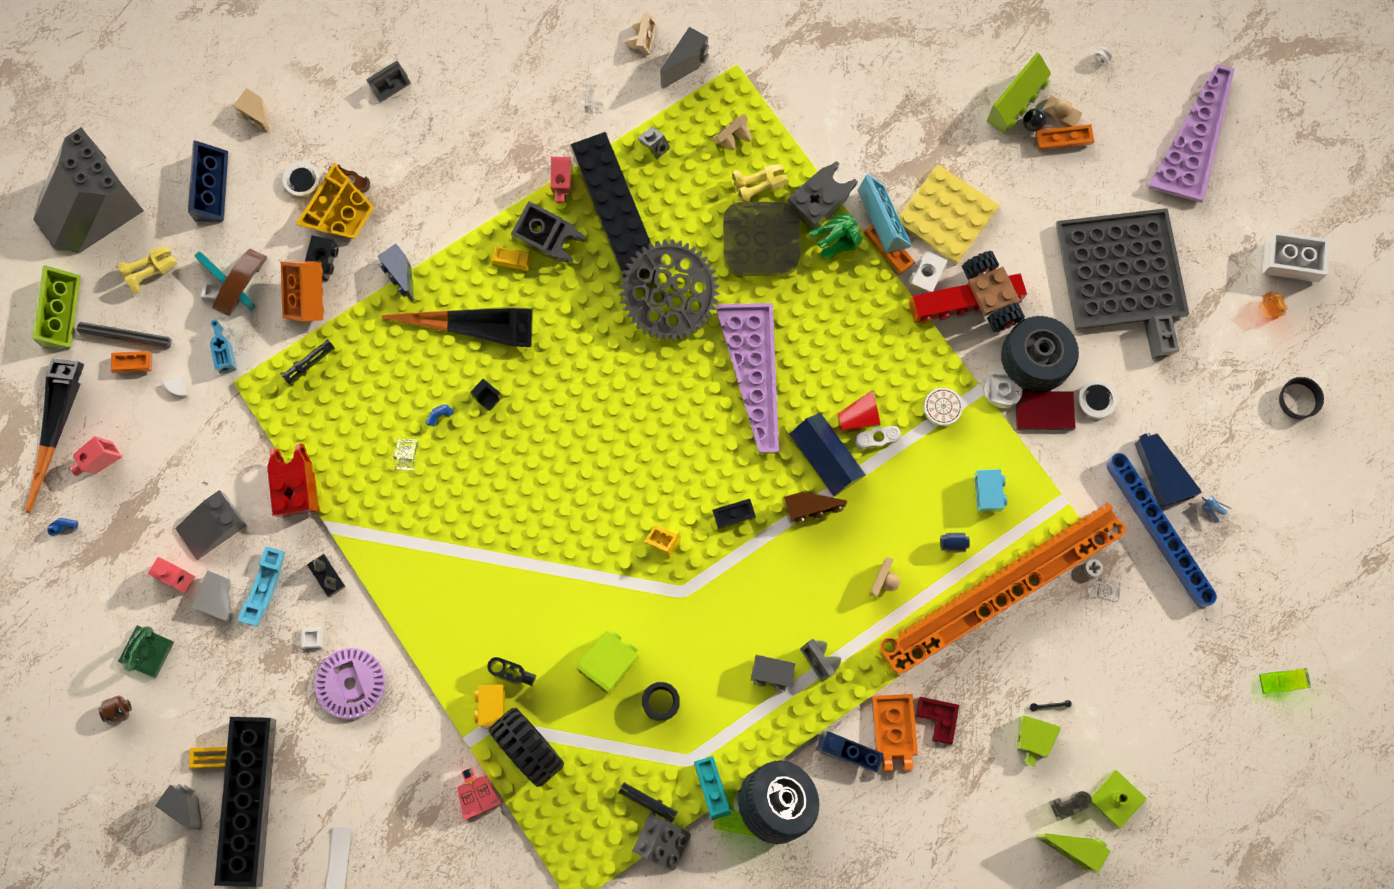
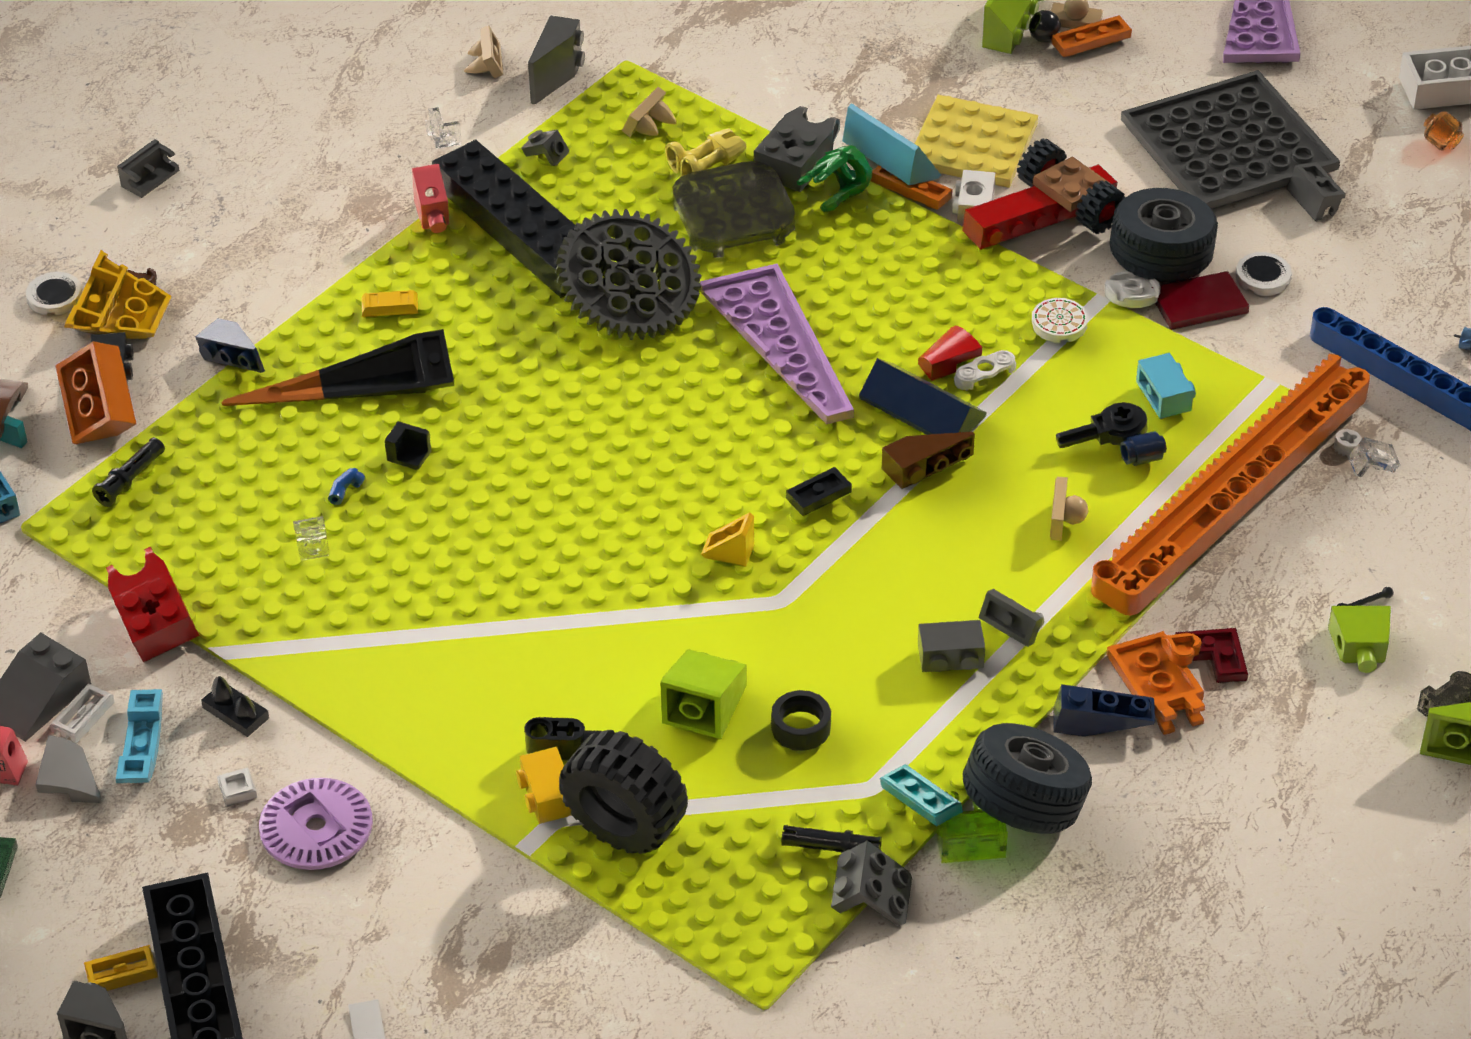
camera: 15 degrees left, 30 degrees down
(240, 555) = (86, 715): none -> white tile
(476, 795) = (565, 904): coral torso -> none
(550, 238) = (431, 260): dark grey brick -> none
(917, 715) = (1181, 647): none -> orange tile
(938, 516) = (1109, 426): none -> black piece
(1164, 471) = (1393, 316): dark blue slope -> none

